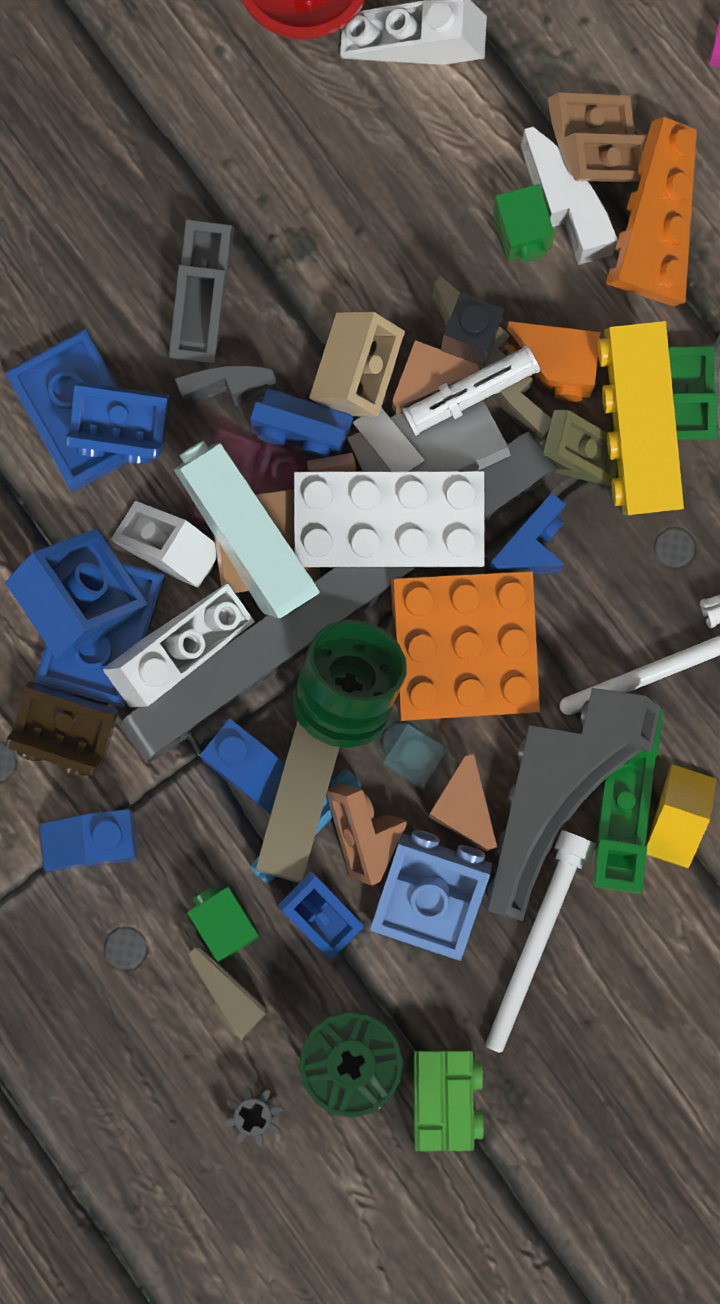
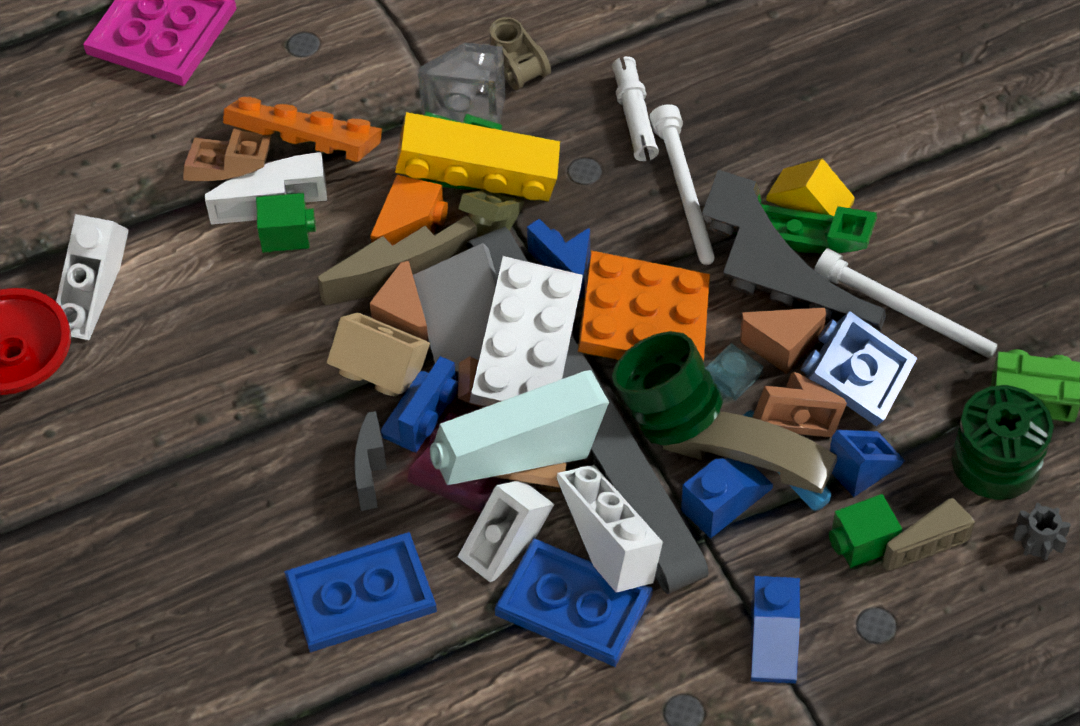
camera: 75 degrees left, 25 degrees down
(62, 729) = (665, 638): dark brown bracket -> none
(75, 592) = (543, 601): blue slope -> none
(117, 422) = (385, 543): blue bracket -> none
(201, 291) = (274, 468): dark grey slope -> none
(389, 442) = (455, 339): white sticker -> none
(471, 390) = (436, 302): white pin -> none
(472, 329) = (376, 248): black brick -> none

